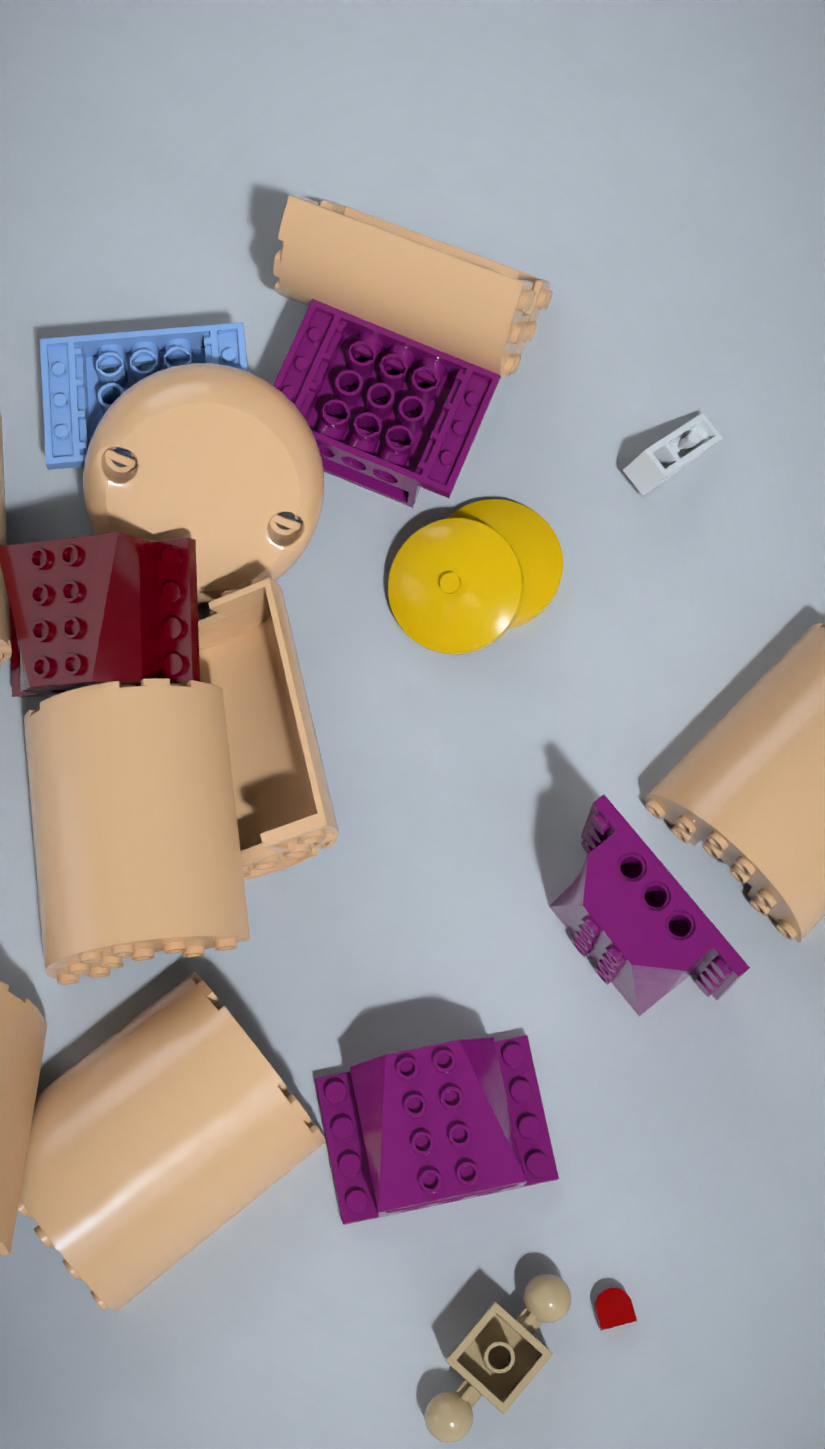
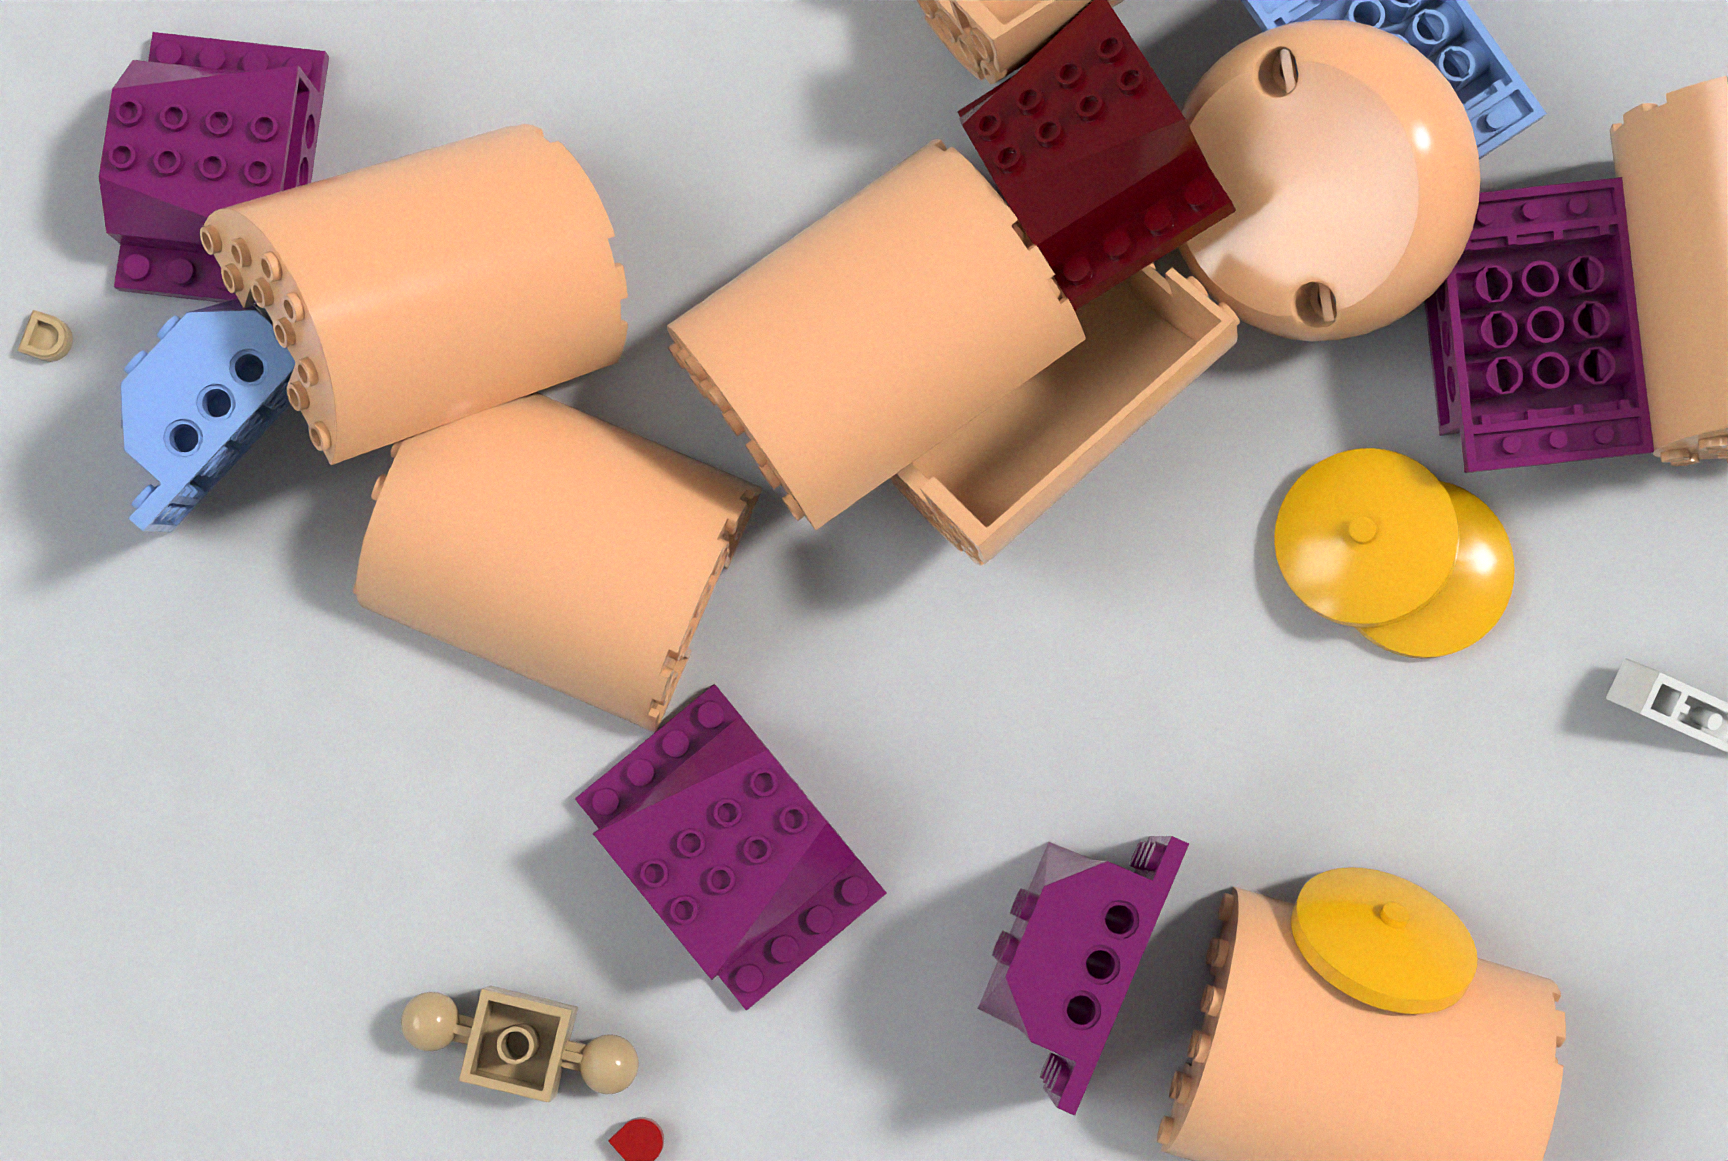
camera: 65 degrees right, 10 degrees up
(731, 714) = (1384, 940): none -> yellow dish

